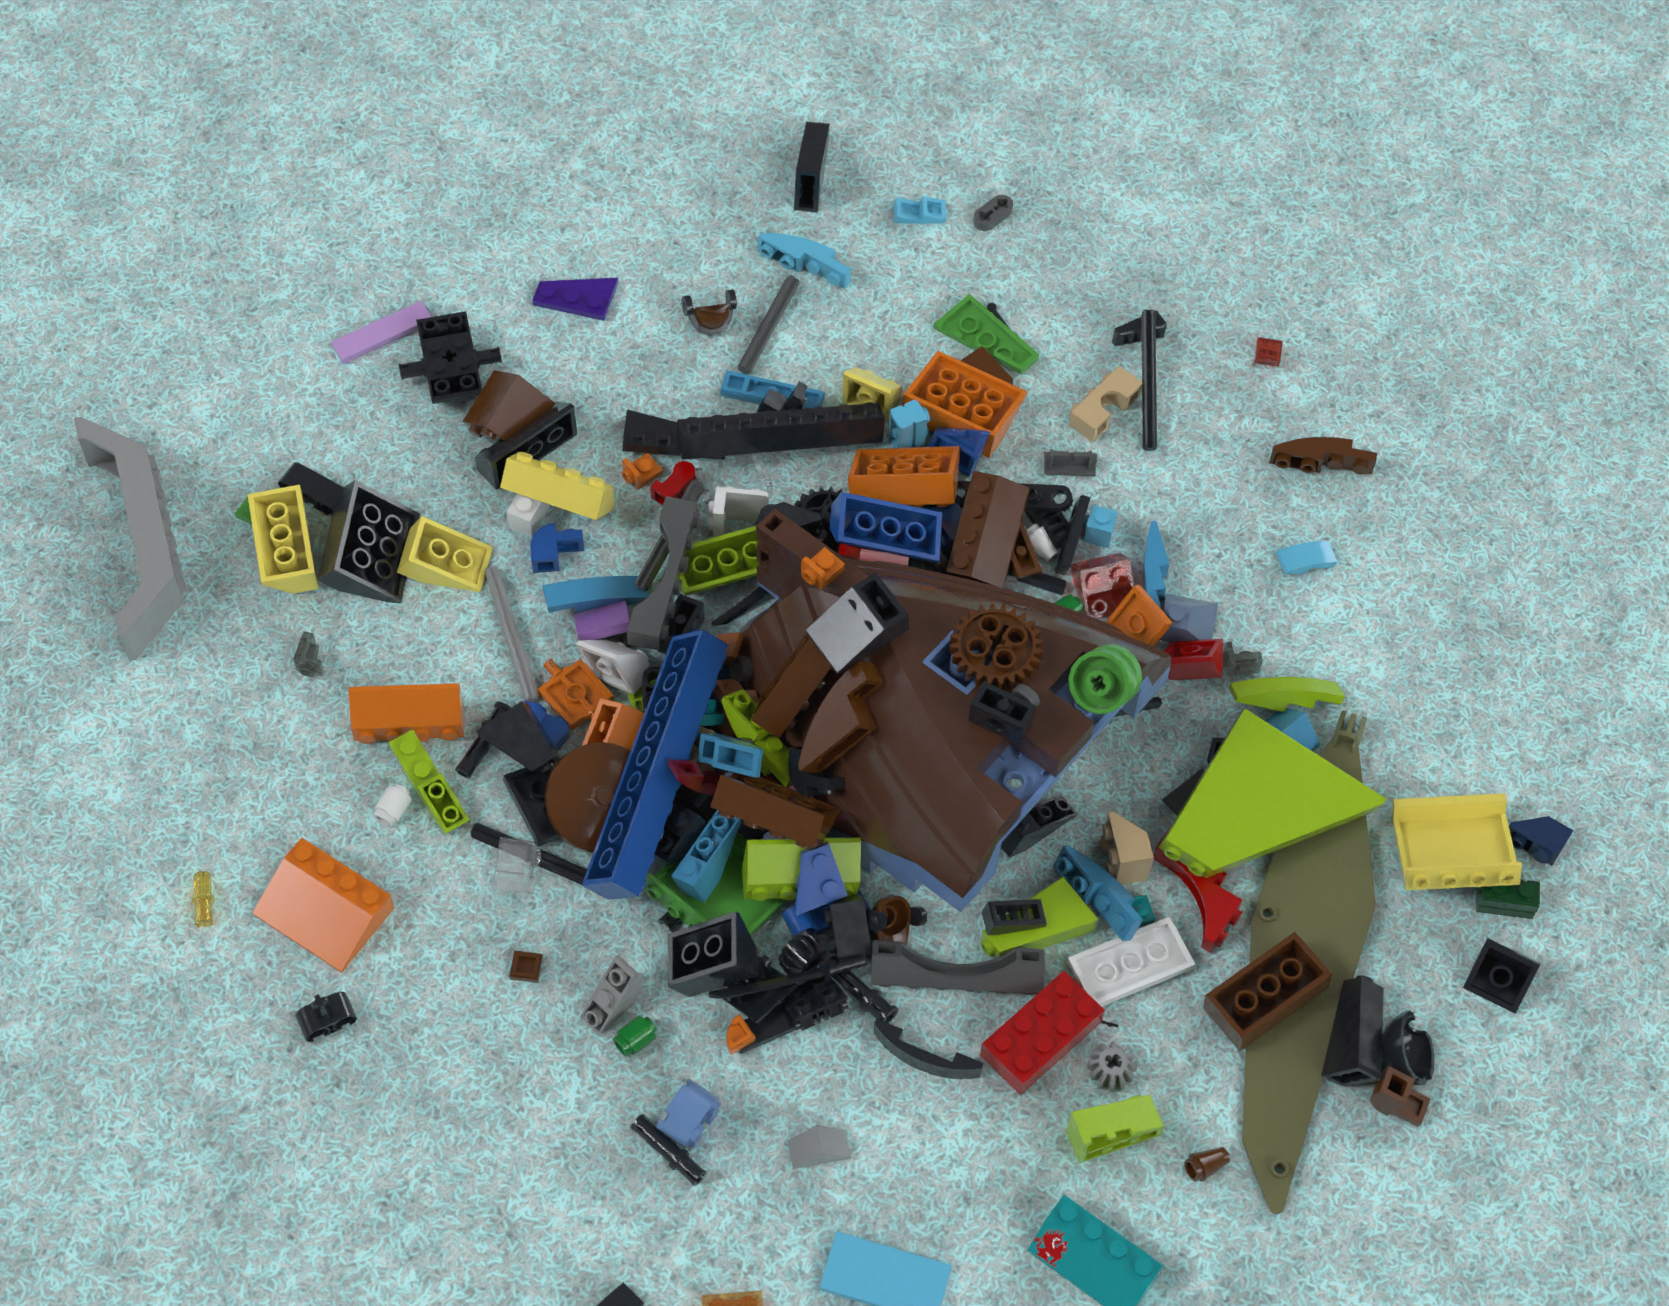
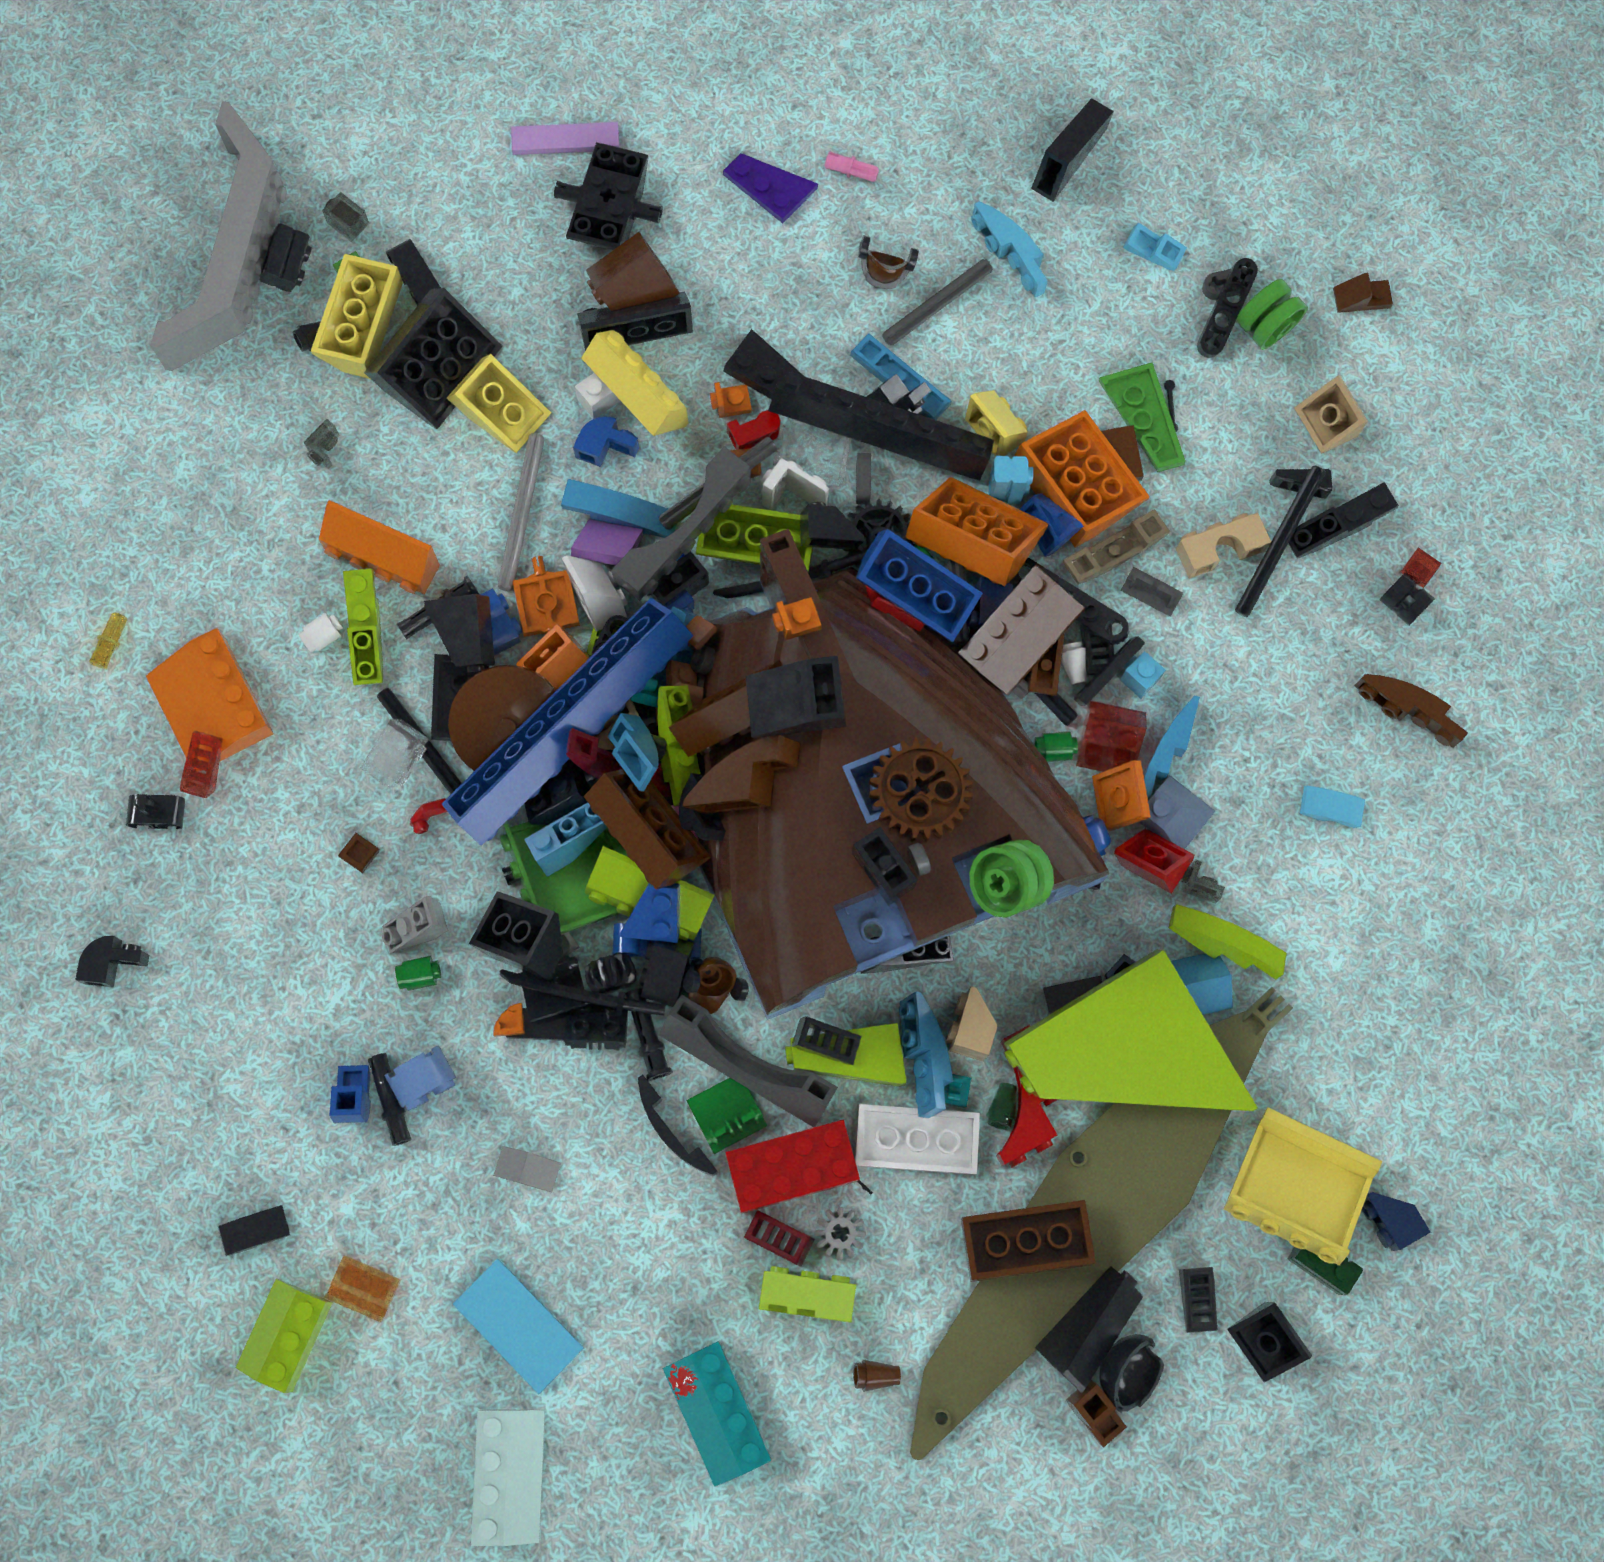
camera: 25 degrees right, 15 degrees up
(191, 524) = (285, 258): none -> black brick
(225, 470) = (345, 216): none -> clear smoke brick
(246, 577) = (306, 335): none -> black cone
(346, 1156) = (101, 958): none -> black brick
(352, 980) = (196, 782): none -> clear red slope
(566, 906) = (423, 813): none -> red arm
(635, 1159) = (351, 1096): none -> blue brick
(638, 253) = (851, 166): none -> bright pink axle
(786, 480) = (863, 478): none -> dark grey beam
(962, 1021) = (726, 1114): none -> green hinge
(1000, 229) = (1227, 308): none -> black beam
(1024, 442) = (1116, 549): none -> dark tan slope
(1043, 217) = (1271, 314): none -> bright green wheel
(1063, 1086) = (802, 1250): none -> dark red slope
(1103, 176) = (1362, 294): none -> reddish brown slope
(1133, 272) = (1331, 415): none -> tan slope
(1186, 907) = (1003, 1107): none -> clear green cone
(1188, 344) = (1342, 521): none -> black slope
(1263, 375) = (1399, 592): none -> black wheel
(1418, 979) = (1187, 1300): none -> black slope

